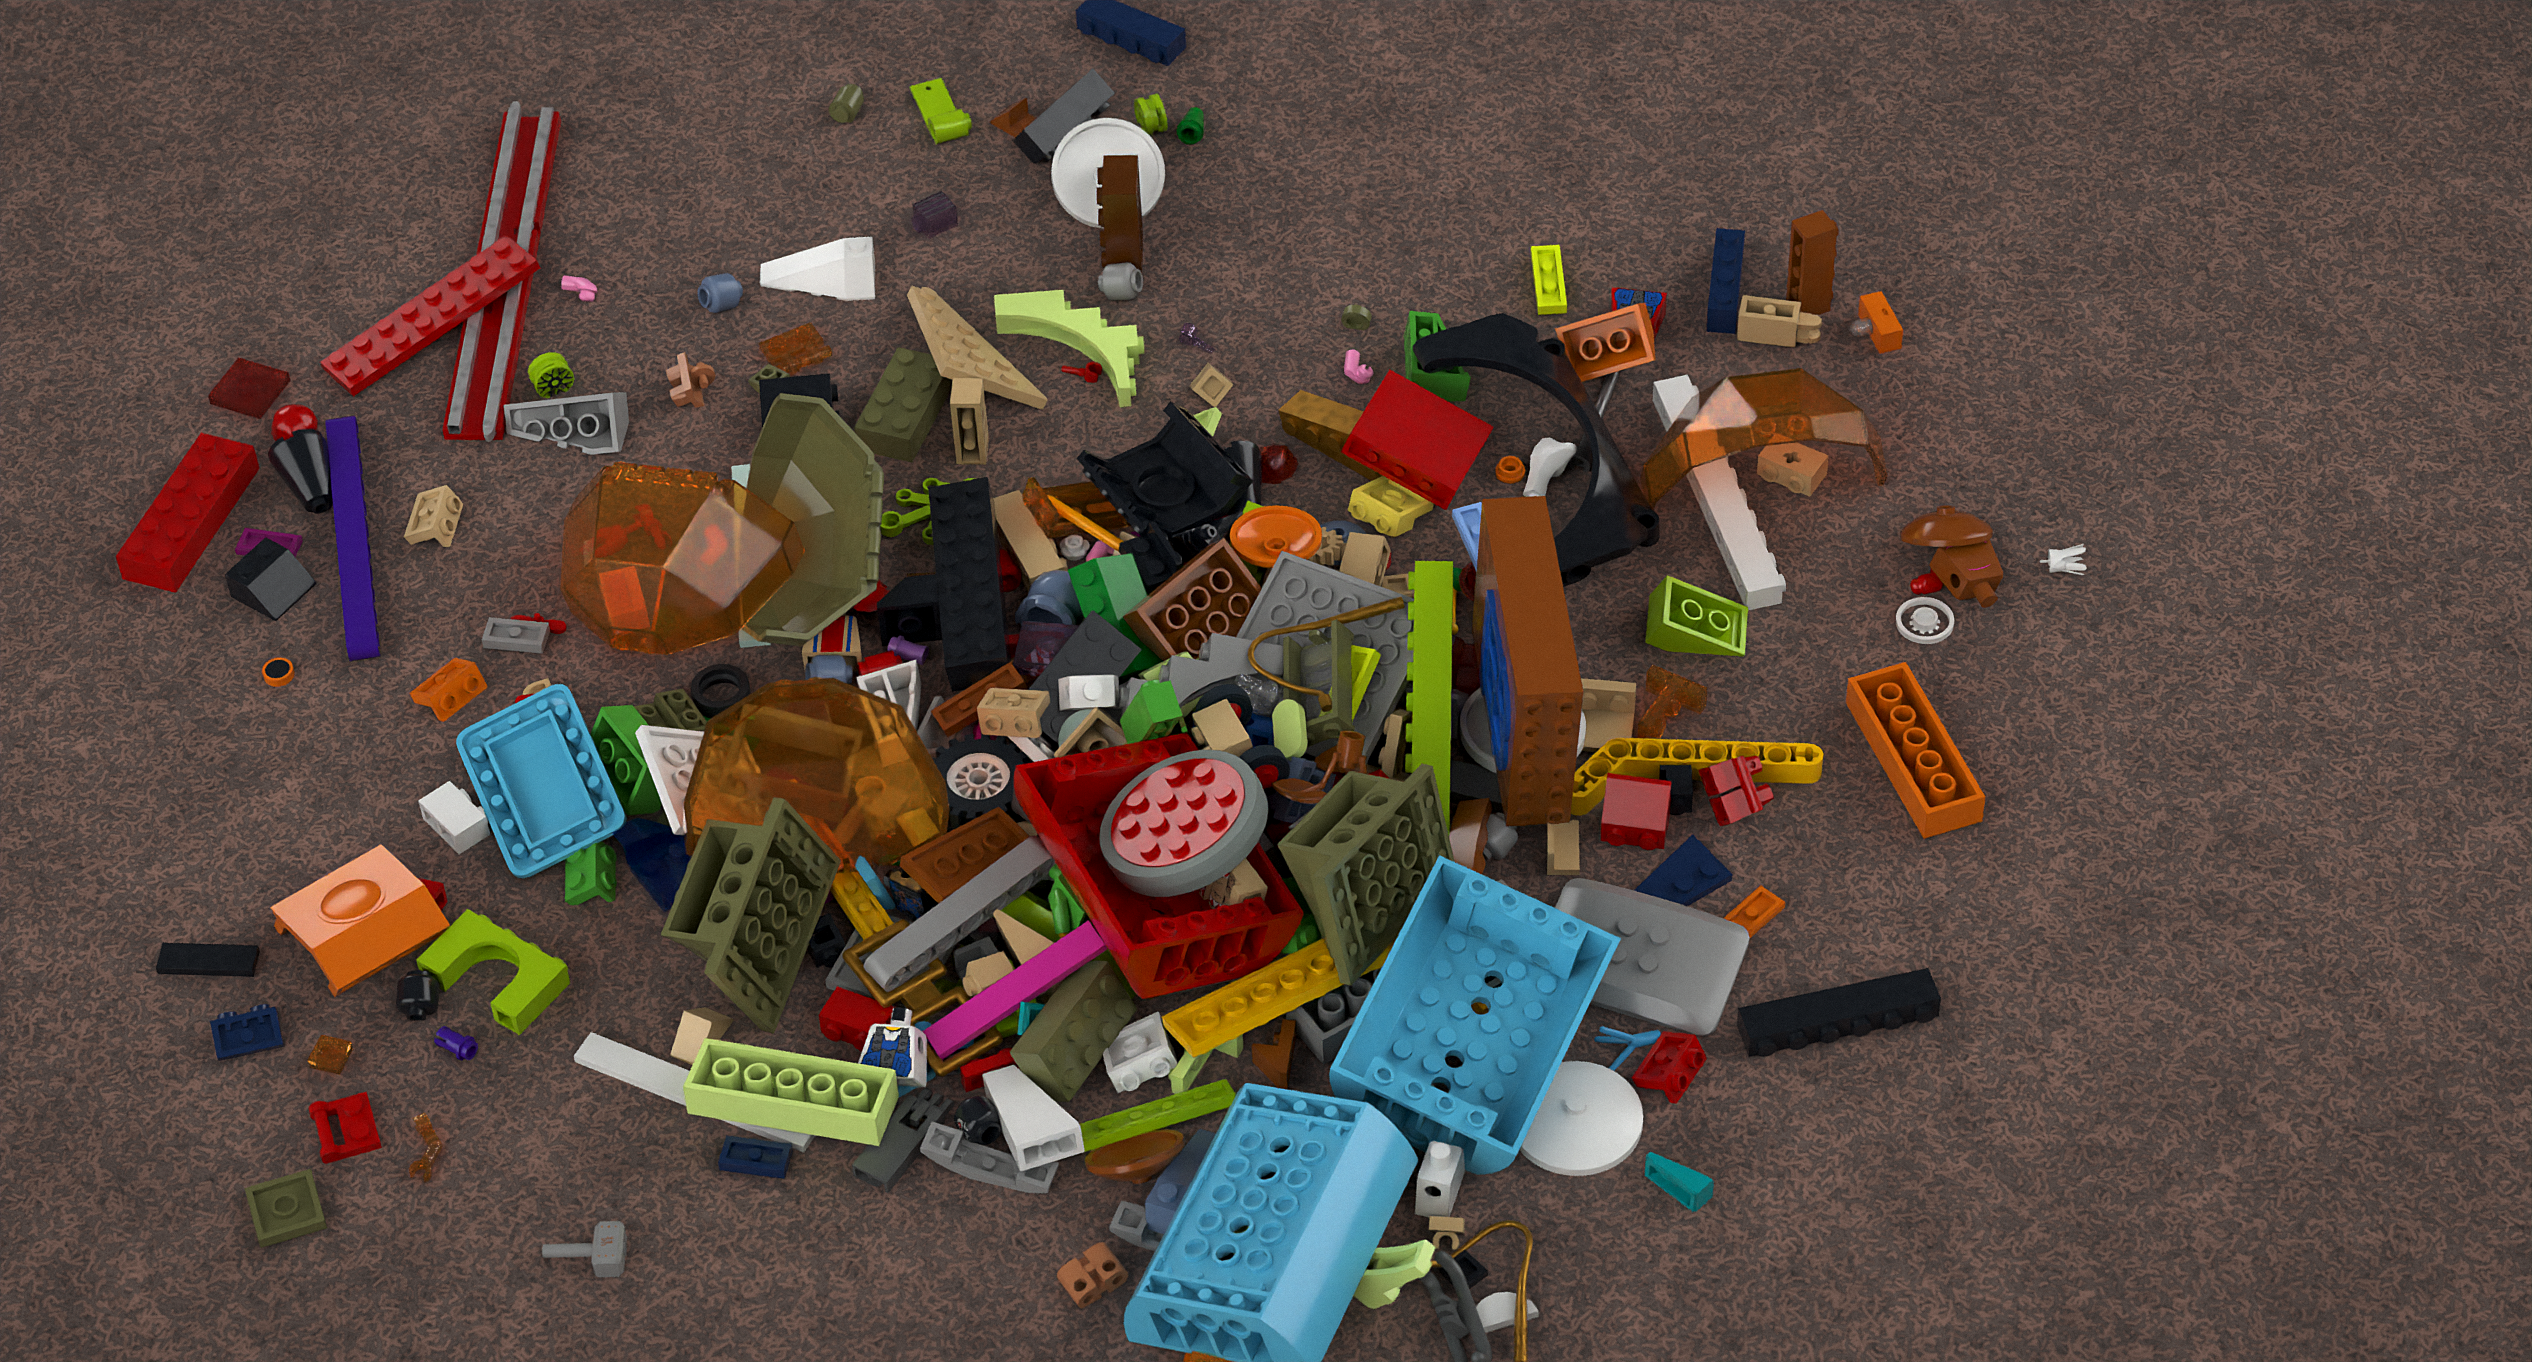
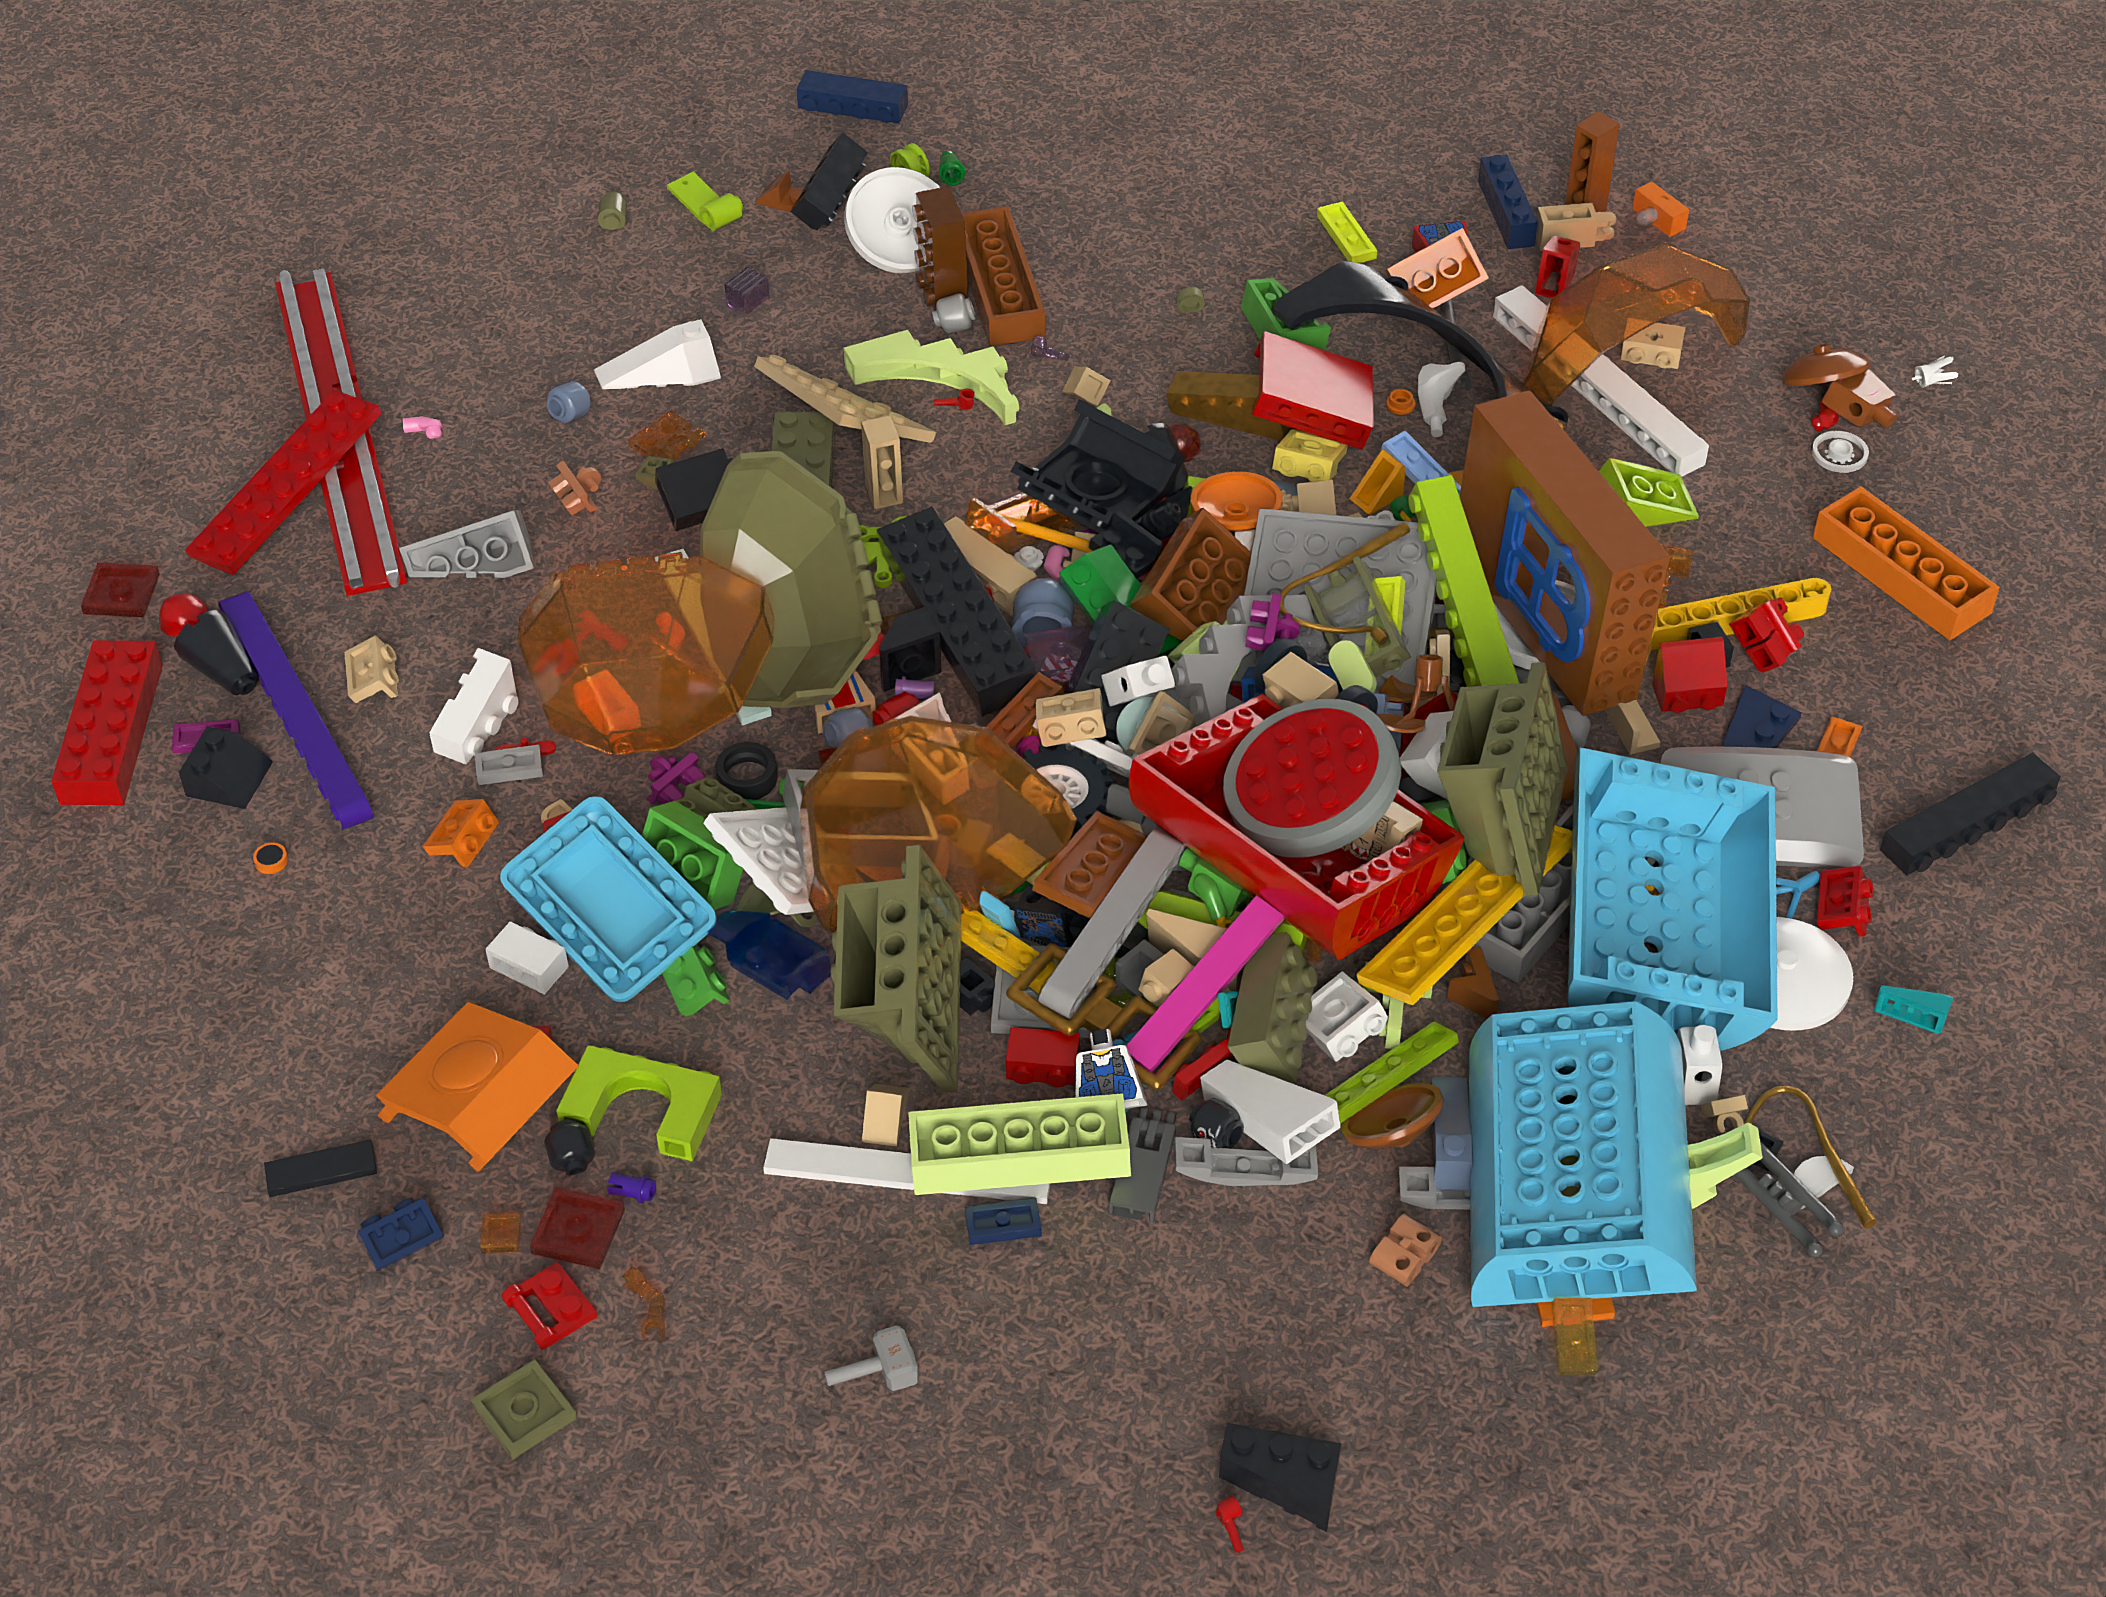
camera: 20 degrees left, 0 degrees up
(395, 1067) = (577, 1228): none -> clear red plate
(507, 576) = (477, 710): none -> white wedge
(549, 373) = (432, 508): lime wheel -> none
(651, 679) = (669, 777): none -> magenta hips
(1153, 713) = (1231, 681): bright green wedge -> none
(1179, 252) = (1001, 278): none -> dark orange brick
(1233, 667) = (1268, 613): none -> magenta hips
(1354, 371) = (1217, 349): bright pink arm -> none
(1444, 545) = (1380, 484): none -> light orange slope
(1739, 354) = (1558, 256): none -> red torso

